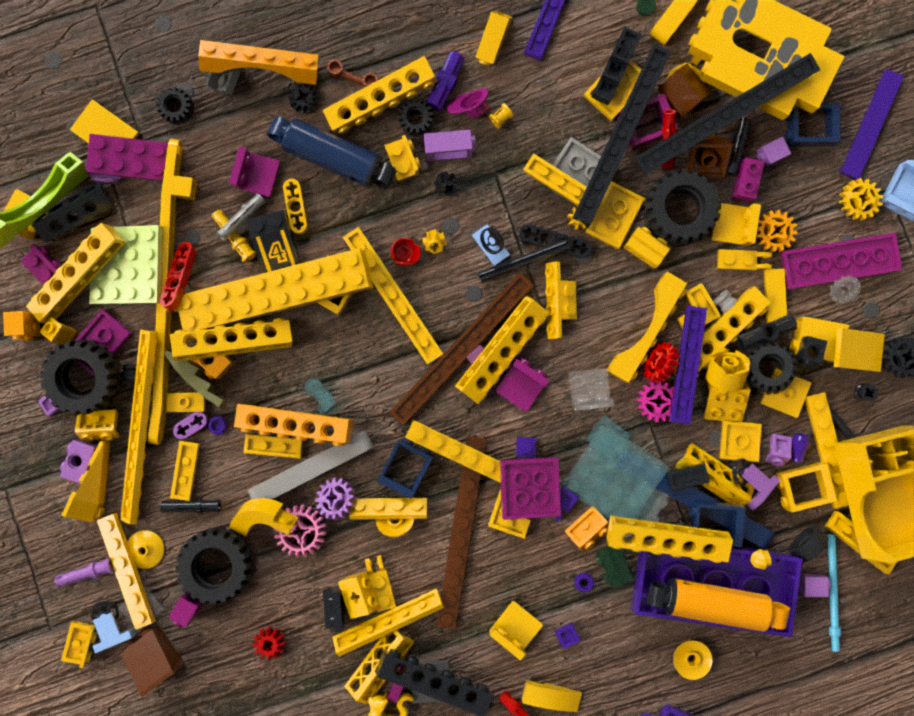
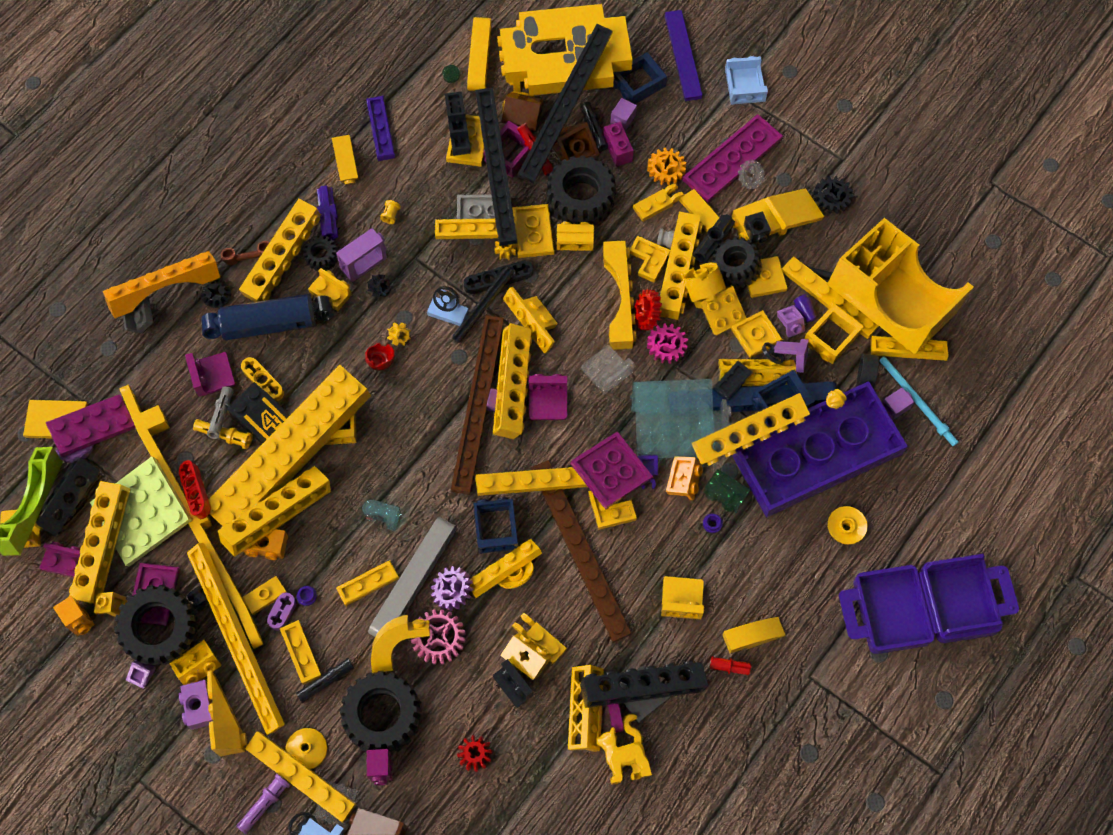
camera: 35 degrees left, 20 degrees down
(170, 95) = (100, 355): black tyre -> none
(192, 375) = (255, 565): olive slope -> none
(246, 414) = (326, 565): light orange brick -> none
(387, 622) = (568, 664): yellow plate -> none
(395, 298) = (404, 401): yellow plate -> none
(472, 103) = (360, 217): magenta piece -> none
(525, 447) = (584, 444): dark purple plate -> none
(567, 635) = (730, 575): dark purple plate -> none
(688, 364) = (670, 297): dark purple plate -> none
(718, 605) = (826, 452): light orange piece -> none
(737, 224) = (634, 179): yellow bracket -> none
(854, 204) = (714, 105): yellow gear -> none
(870, 395) = (828, 237): black bush -> none

